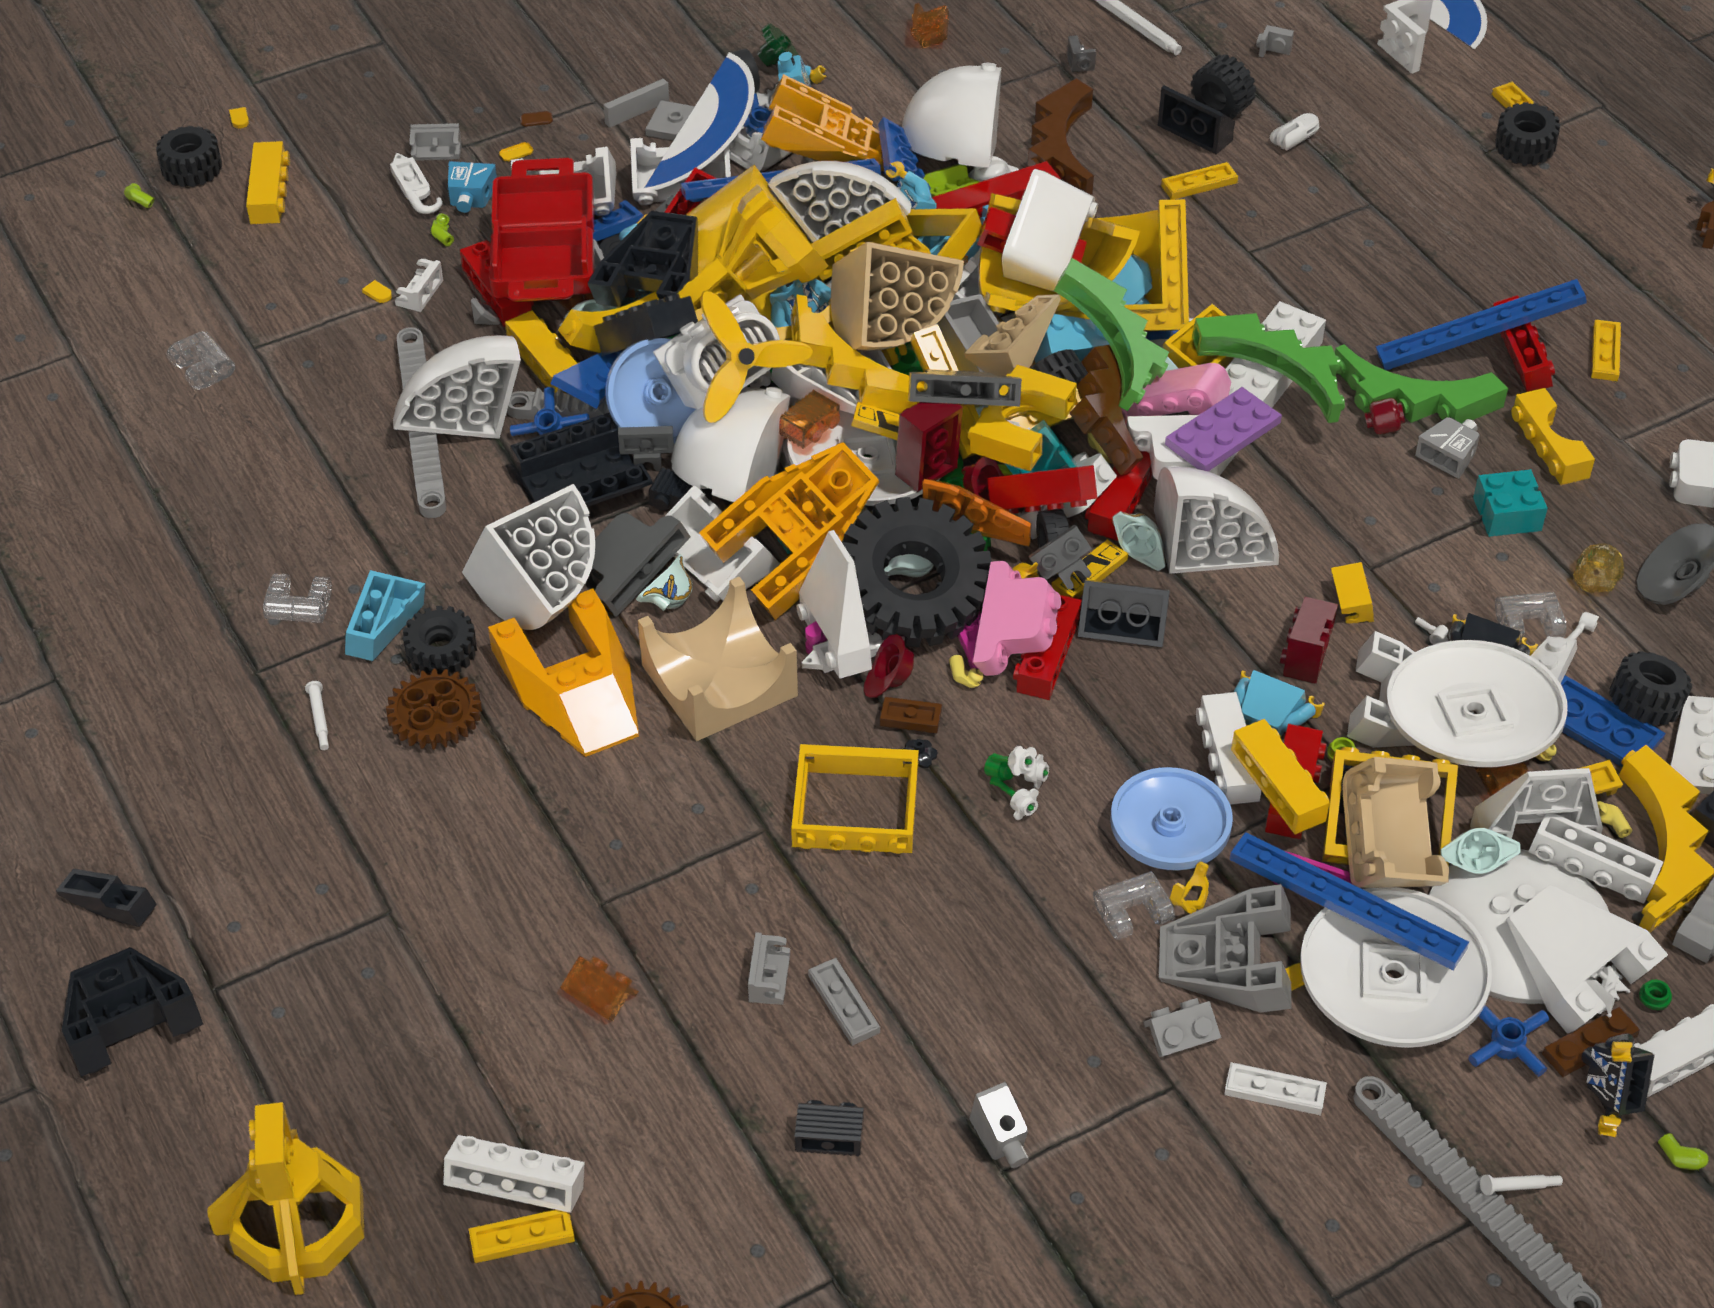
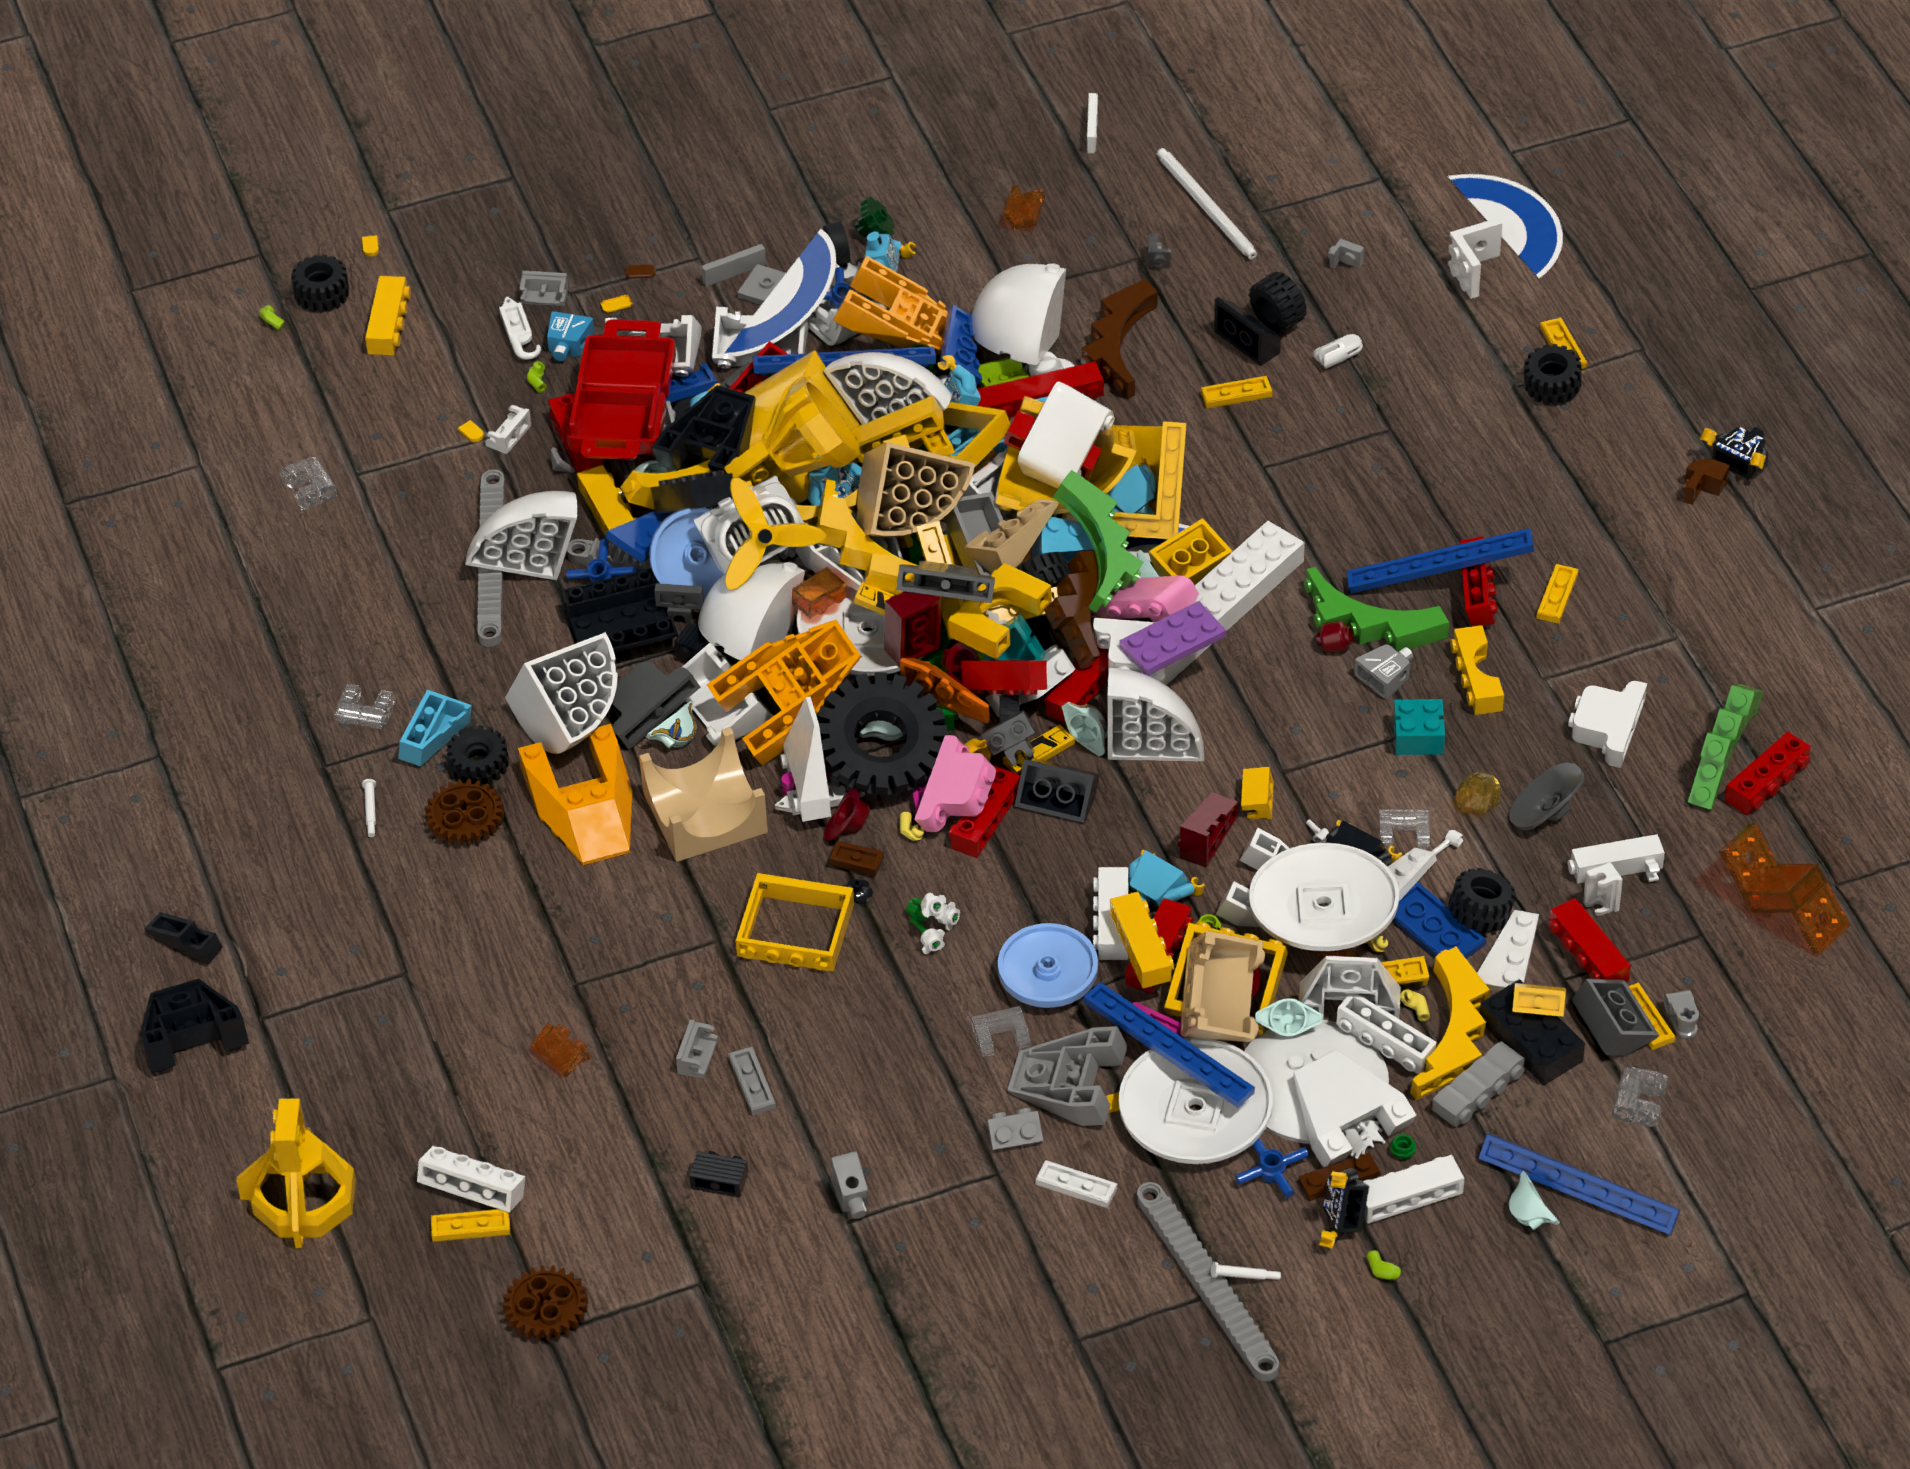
camera: 10 degrees right, 0 degrees up
(1180, 891) = (1059, 1016): yellow helmet -> none
(1280, 350) = (1222, 555): bright green arch -> none

